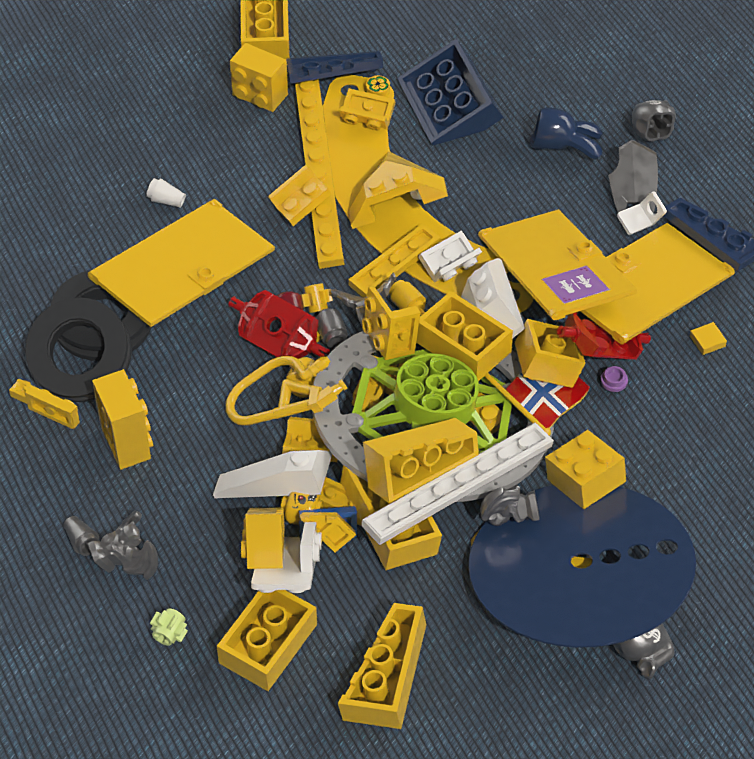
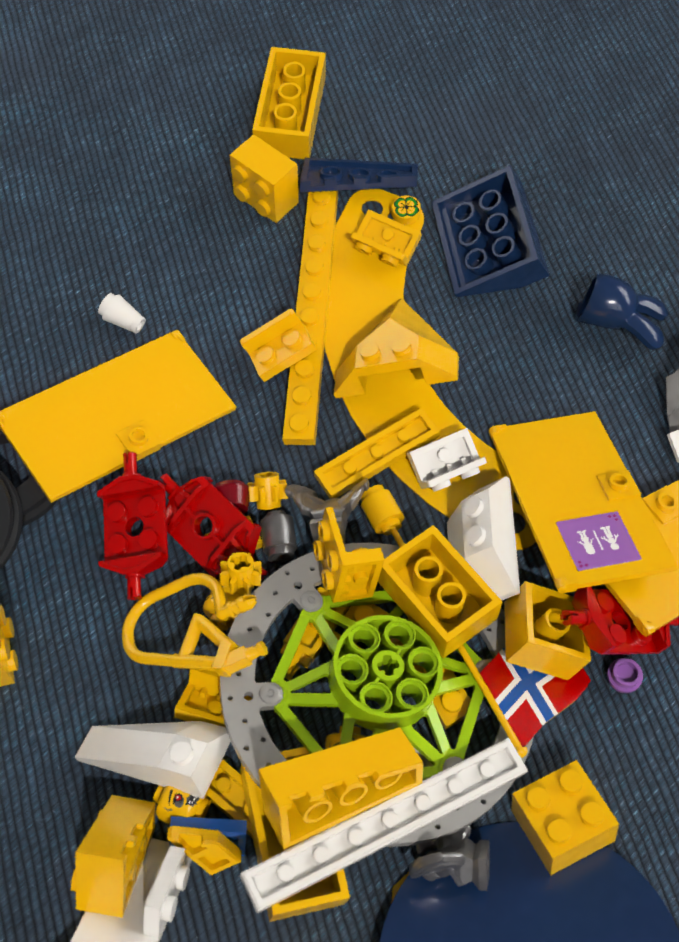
camera: 10 degrees right, 10 degrees up
(206, 322) = (124, 503): none -> red plate
(311, 348) = (240, 573): none -> yellow gear

